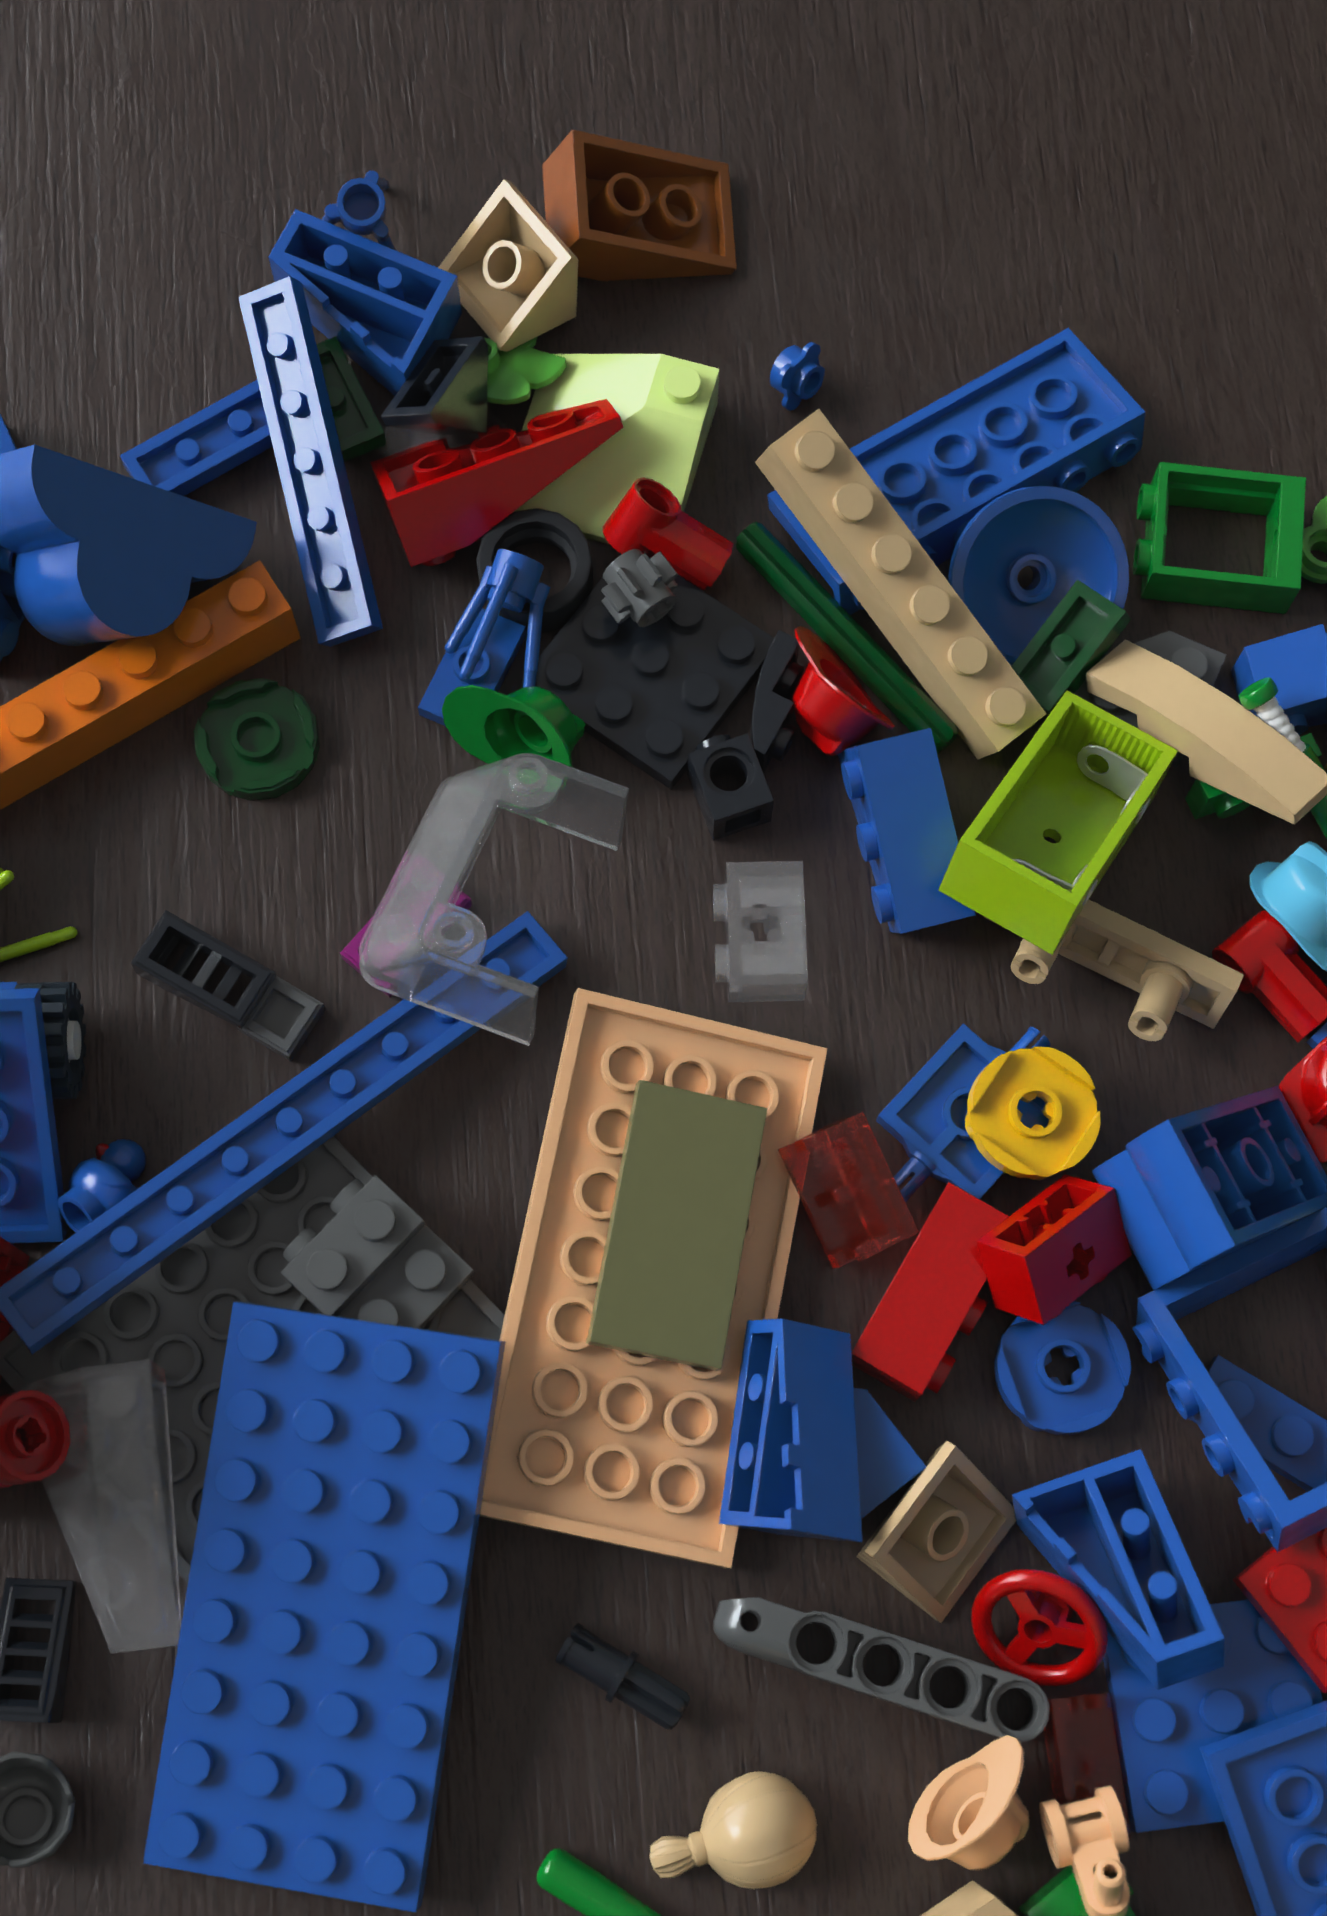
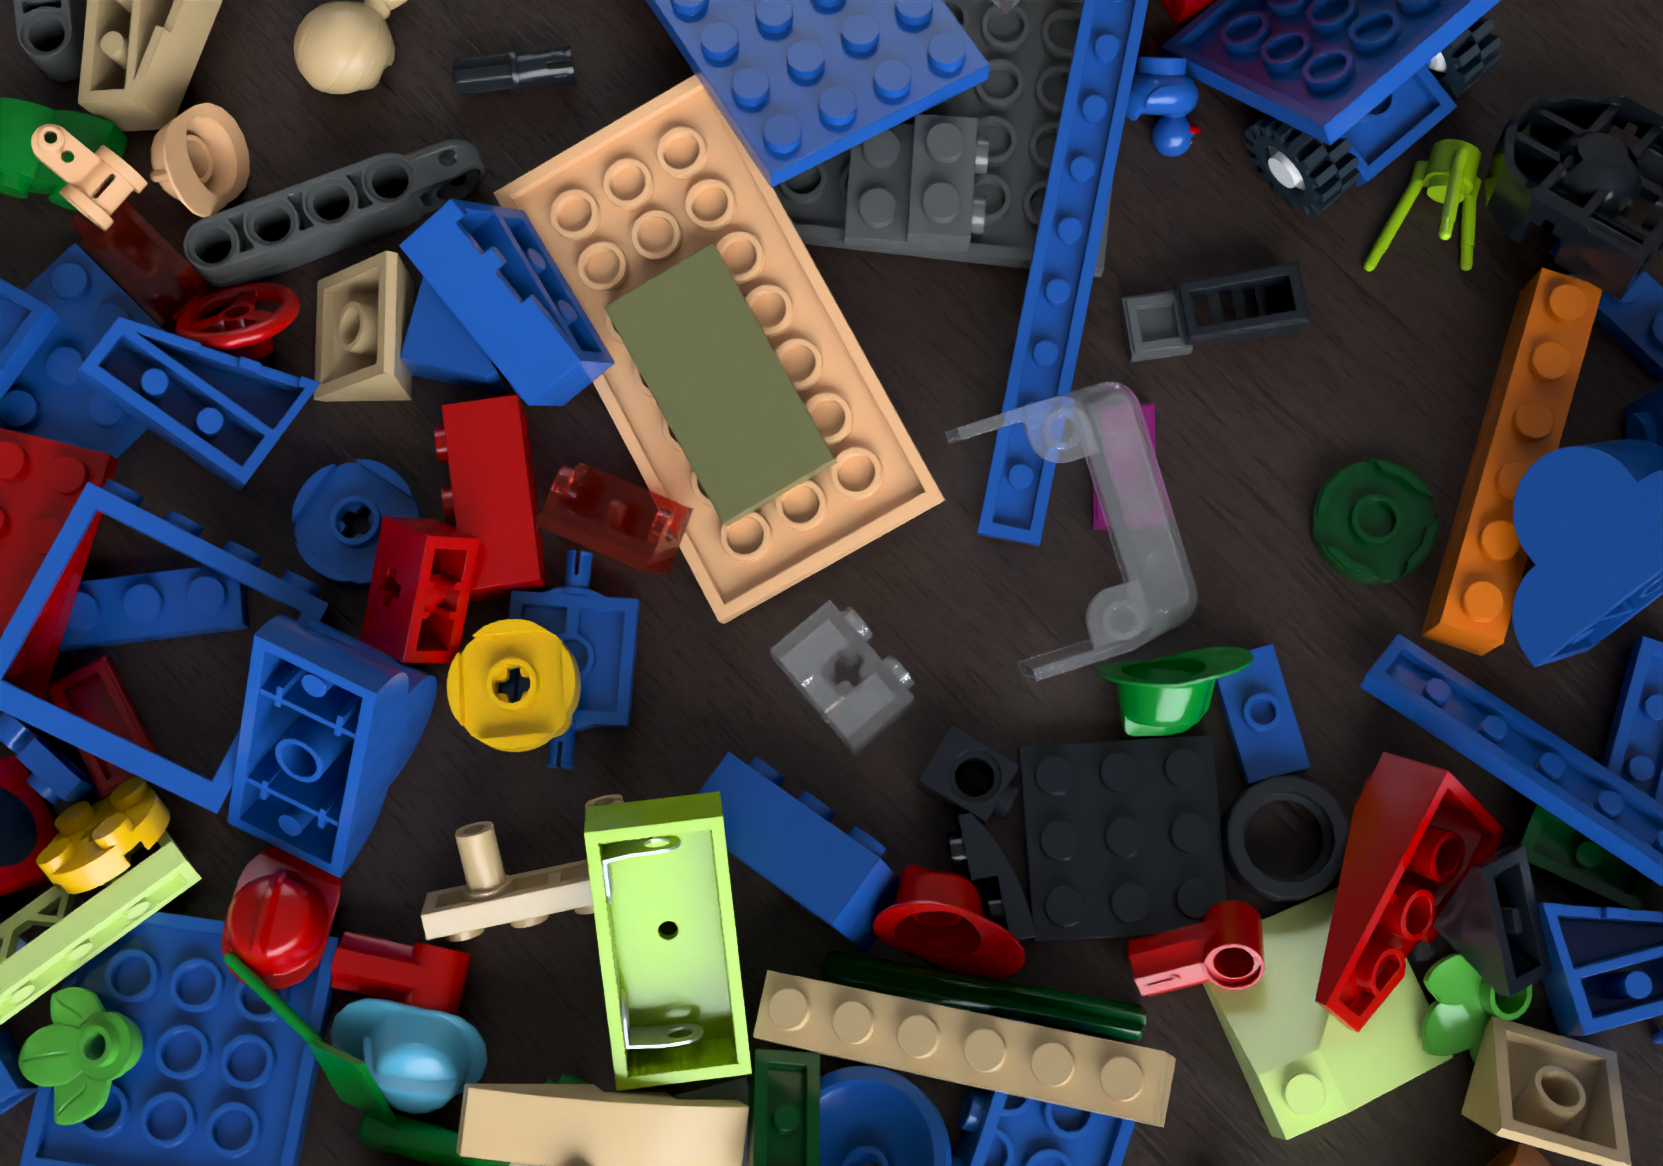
camera: 145 degrees right, 5 degrees up
(508, 585) = (1286, 786): blue plant -> none
(639, 587) = (1179, 873): dark grey gear -> none

